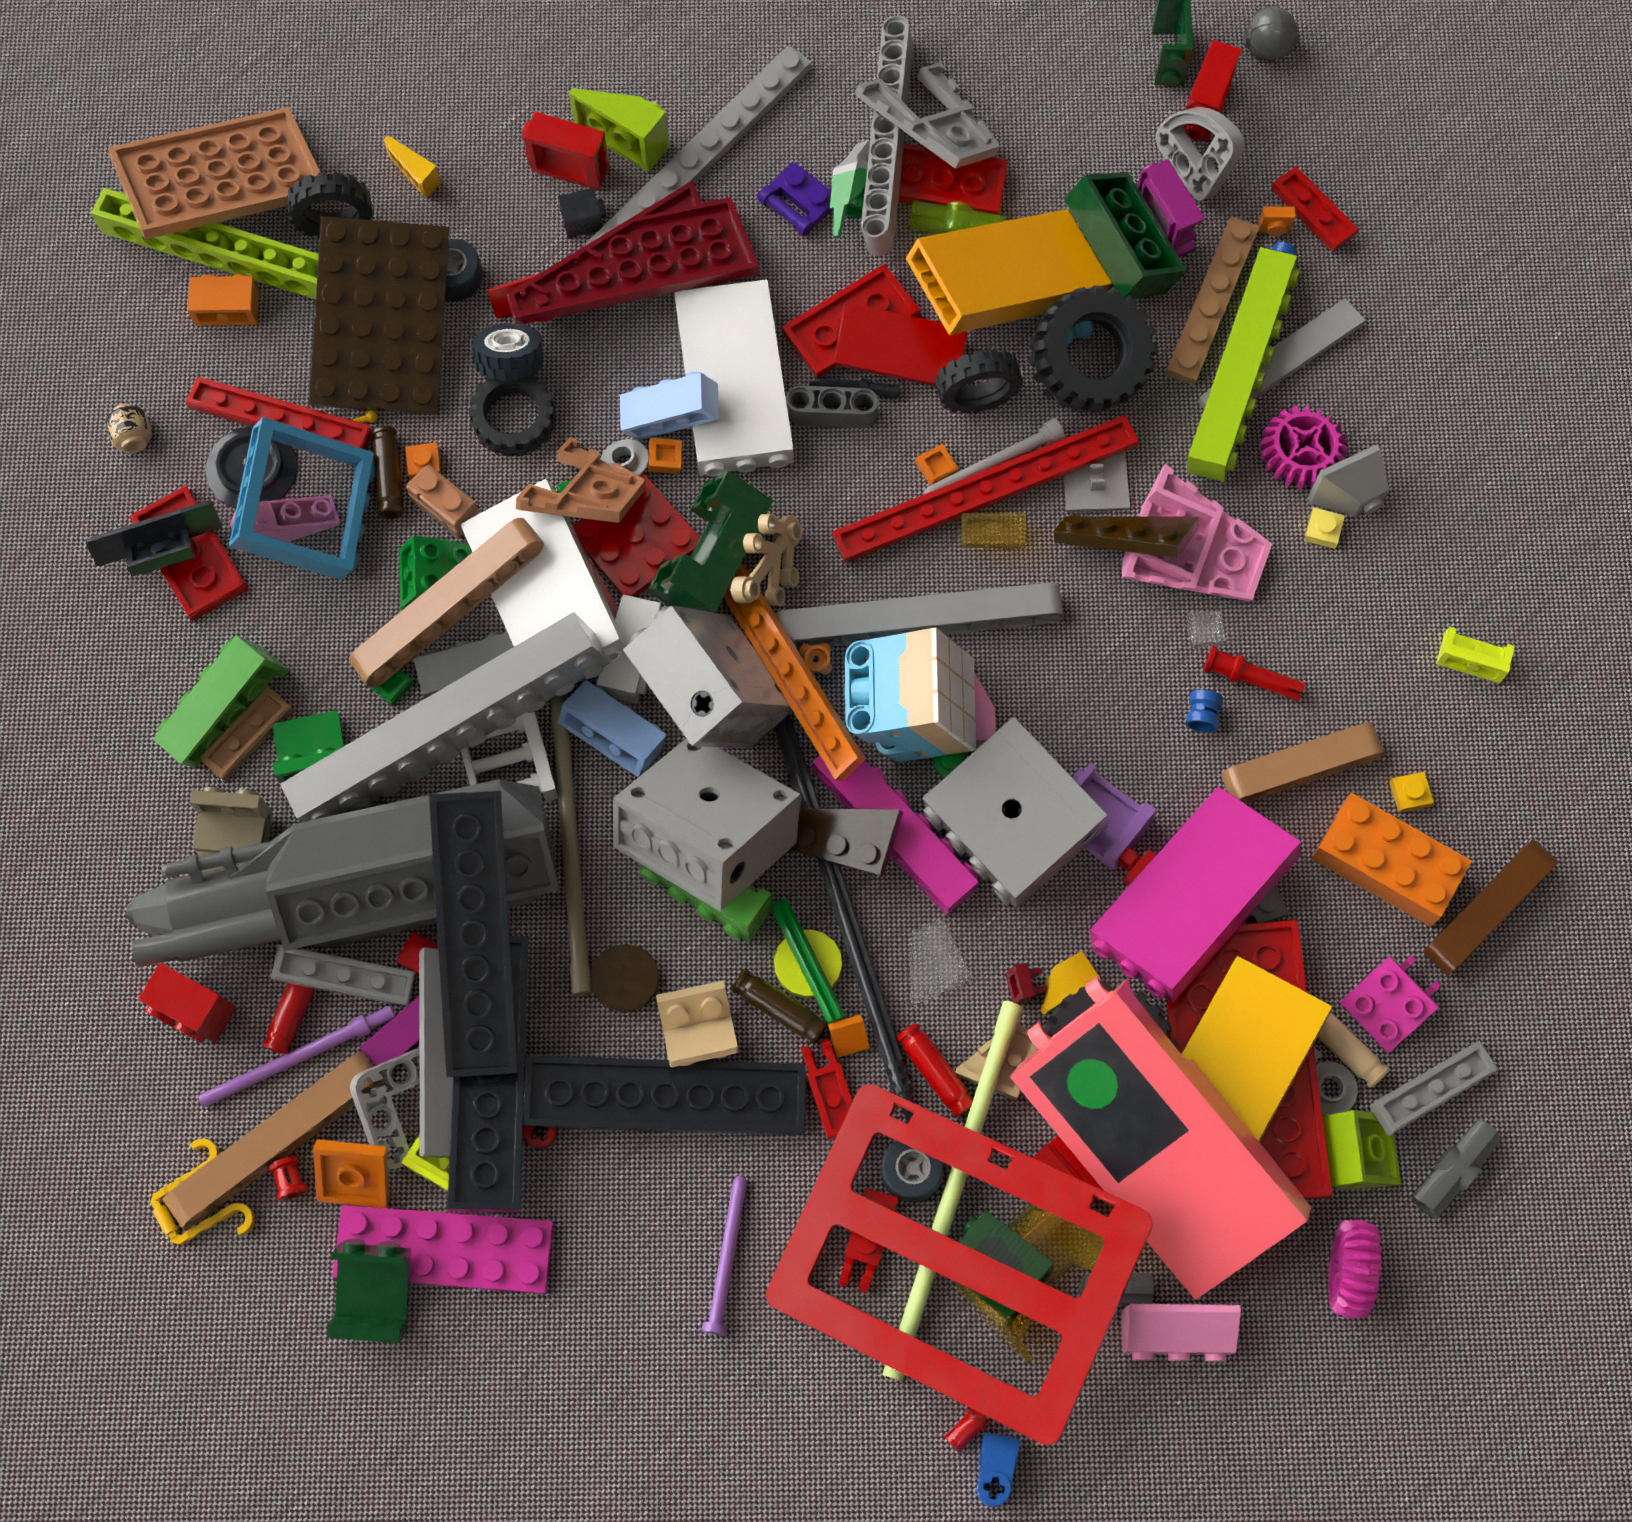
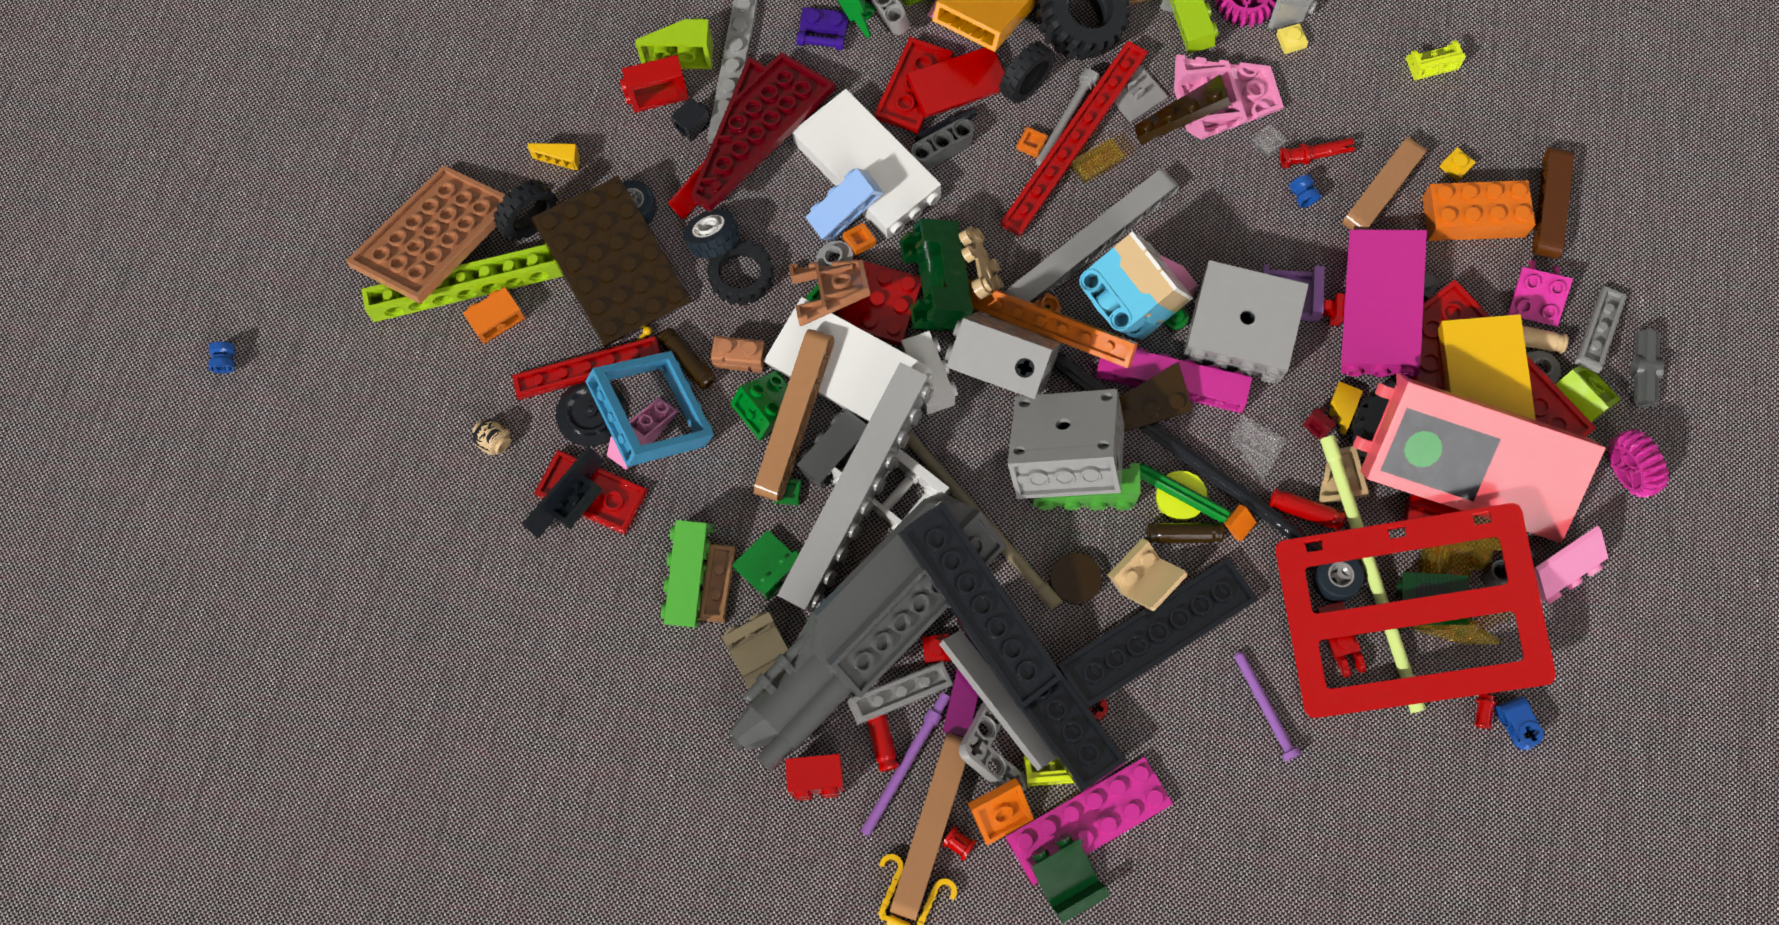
camera: 30 degrees left, 0 degrees up
(421, 455) = (702, 337): orange plate -> none
(612, 728) = (956, 428): light blue brick -> none
(828, 1089) = (1252, 563): red hinge -> none

